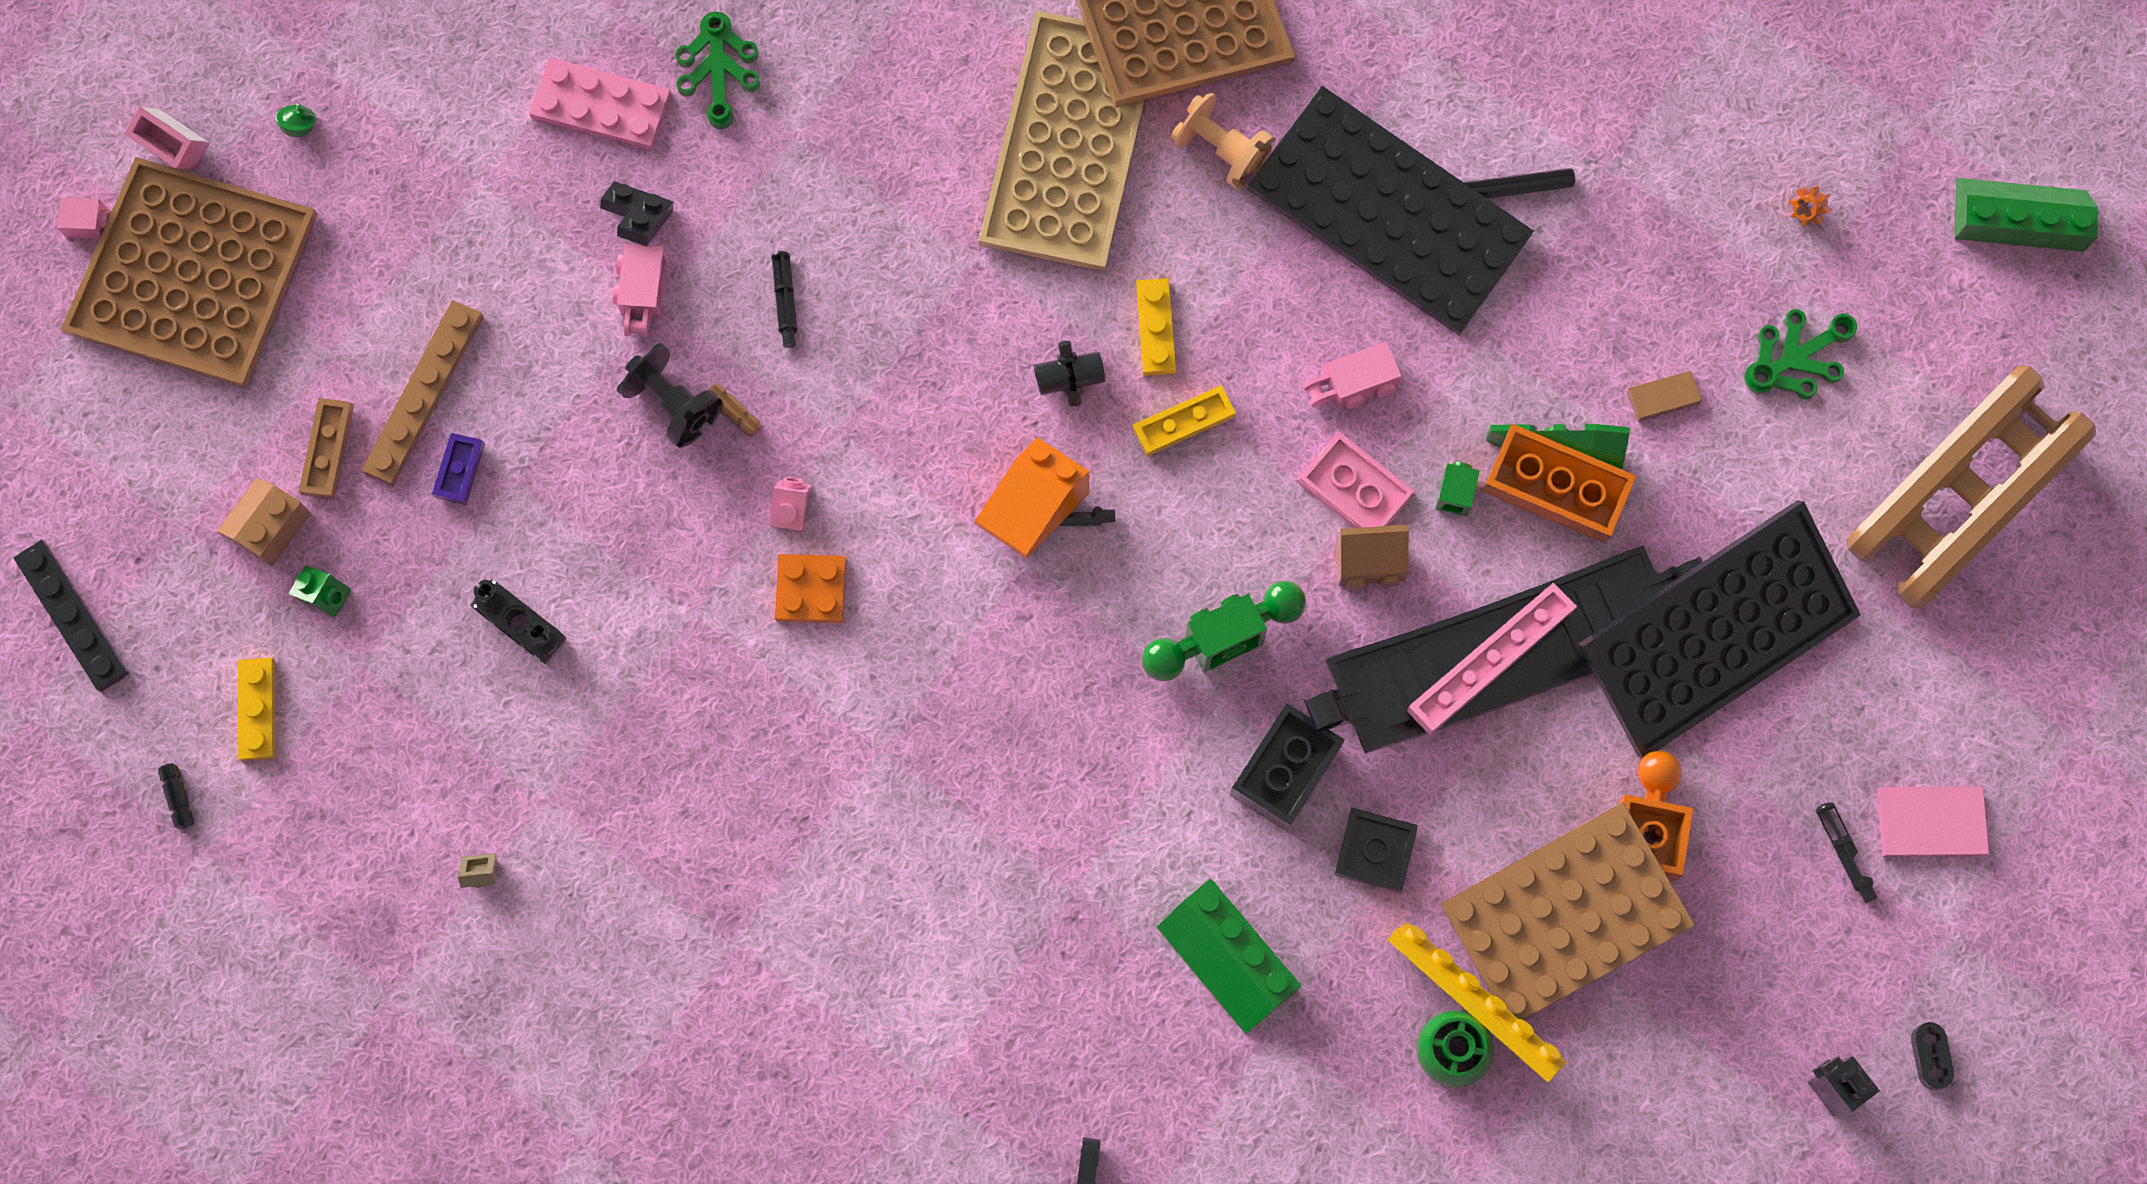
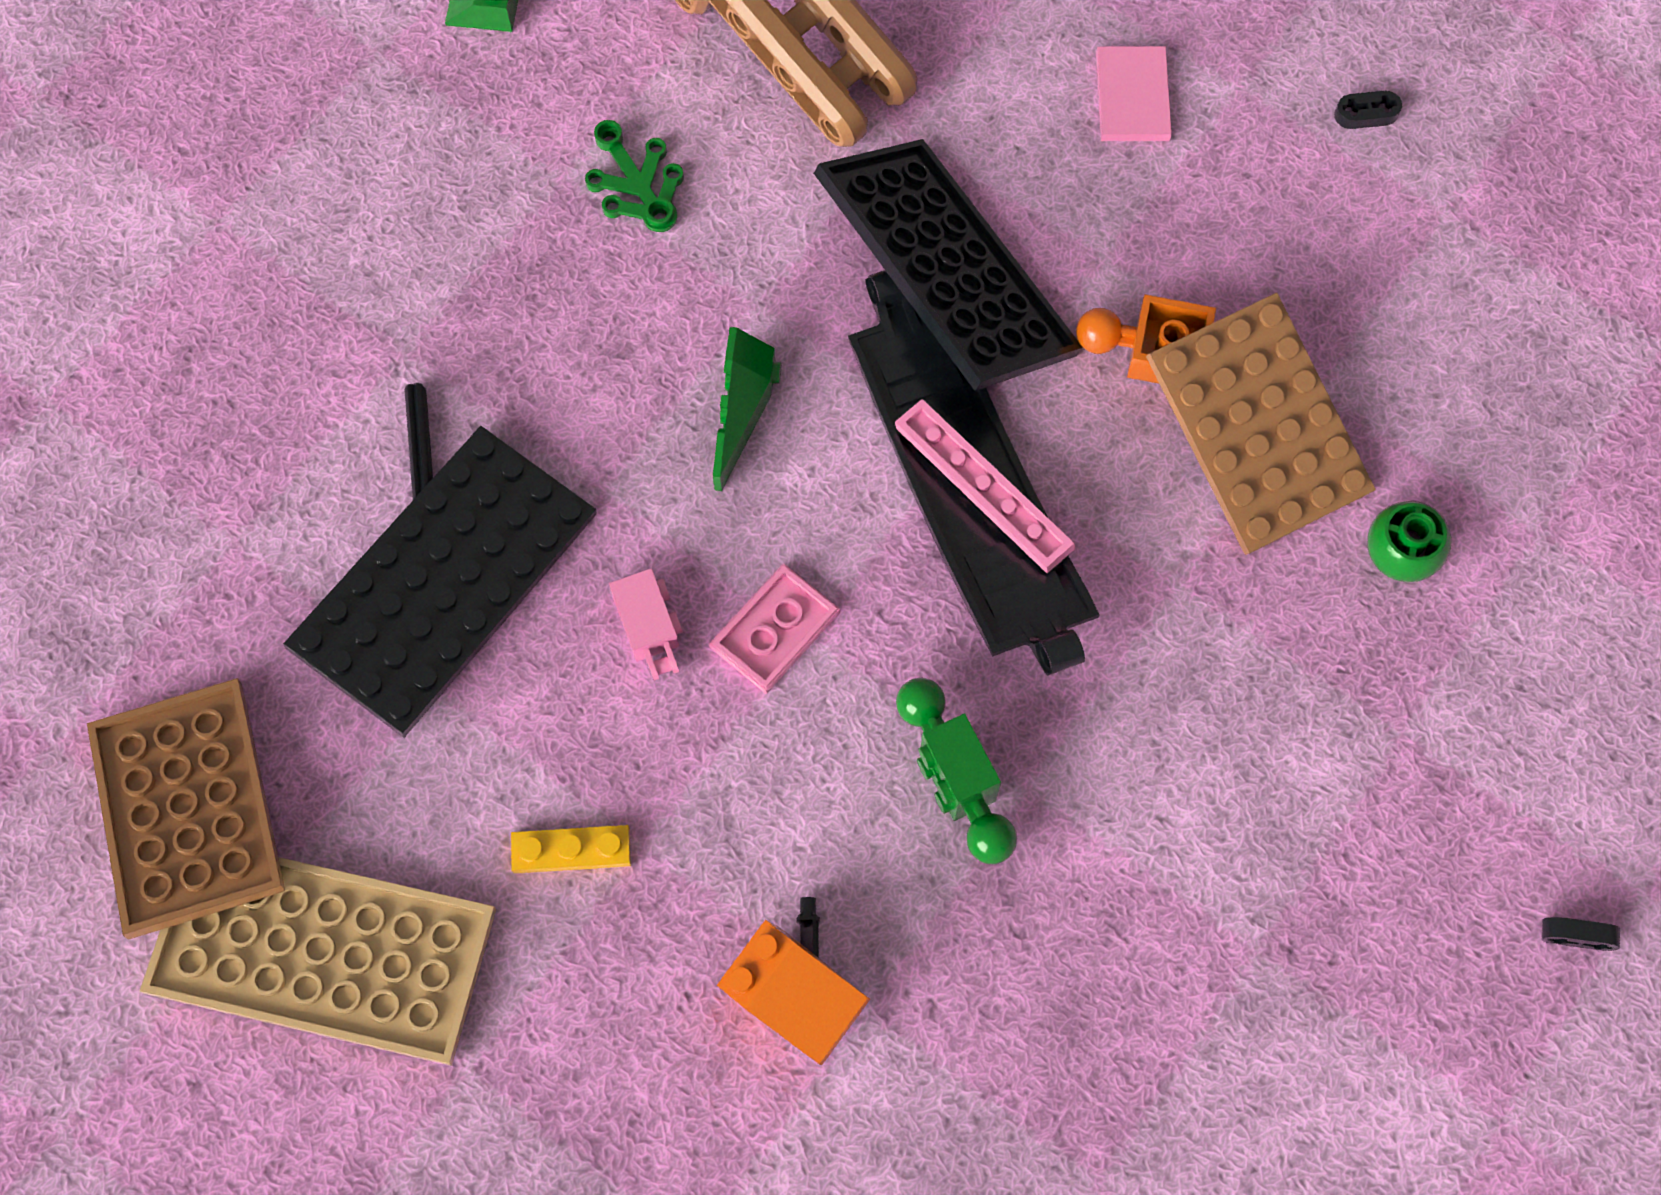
camera: 90 degrees left, 5 degrees down
(1069, 373) = (629, 949): black pin -> none
(1184, 420) = (692, 816): yellow plate -> none
(1228, 956) = (1325, 775): green slope -> none
(1237, 150) = (352, 749): light nougat piece -> none
(1286, 767) = (1112, 706): black brick -> none
(1372, 556) = (865, 607): medium nougat slope -> none
(1376, 850) = (1195, 617): black plate -> none
(1457, 488) = (782, 518): green brick -> none
(1486, 1008) = (1357, 517): yellow plate -> none
(1559, 483) = (782, 410): orange slope -> none
(1664, 396) = (677, 309): medium nougat tile -> none
(1801, 209) = (462, 149): orange gear -> none
(1842, 1085) = (1416, 178): black brick -> none
(1846, 852) = (1169, 169): black piece -> none

